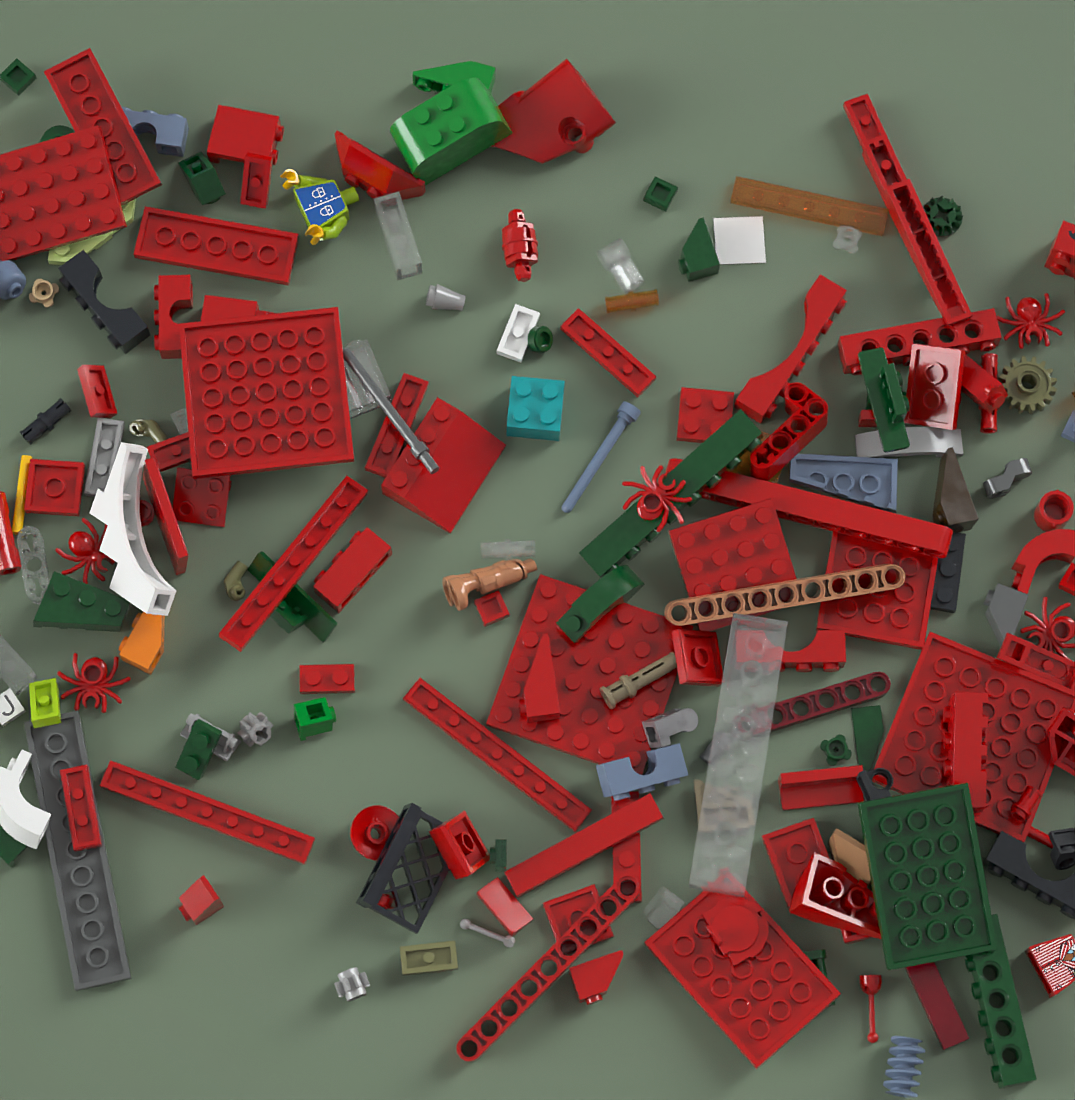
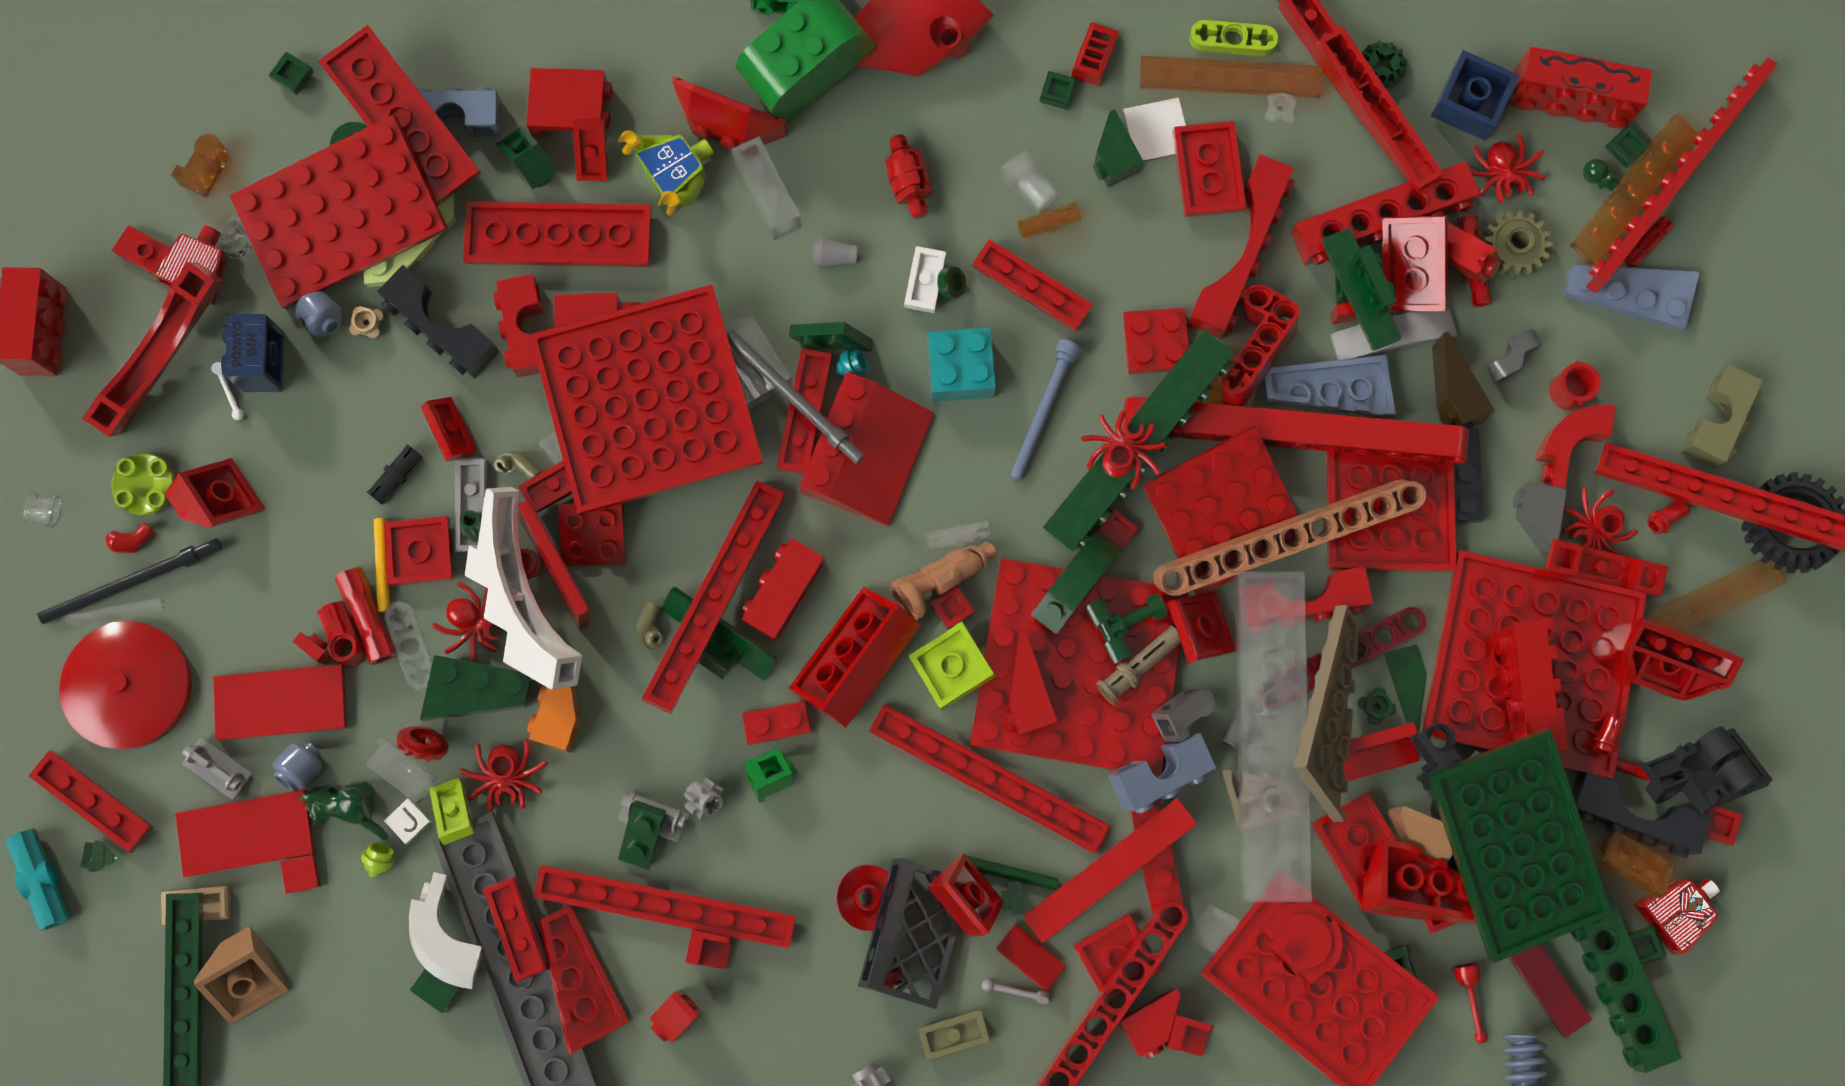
camera: 10 degrees left, 5 degrees up
(30, 644) = (422, 743): none -> red gear
(100, 476) = (471, 532): none -> dark green cone
(126, 864) = (580, 986): none -> red wing
(237, 853) = (709, 949): none -> red panel
(403, 634) = (855, 656): none -> red slope
(430, 366) = (830, 335): none -> dark green wing
(444, 391) = (852, 362): none -> teal plate
(482, 655) = (952, 666): none -> lime plate
(498, 833) = (1014, 873): none -> dark green bar
(624, 646) = (1115, 628): none -> dark green bar
(625, 992) = (1188, 1035): none -> red panel
(644, 566) = (1118, 528): none -> red tile
(695, 186) = (1087, 73): none -> red slope
(776, 280) = (1209, 169): none -> red plate
(786, 750) = (1329, 722): none -> dark tan wing
(837, 170) = (1243, 29): none -> lime beam
(1013, 254) = (1474, 95): none -> dark blue brick
(1027, 986) = (1647, 944): none -> dark green tile
(1029, 914) = (1637, 864): none -> clear orange bracket

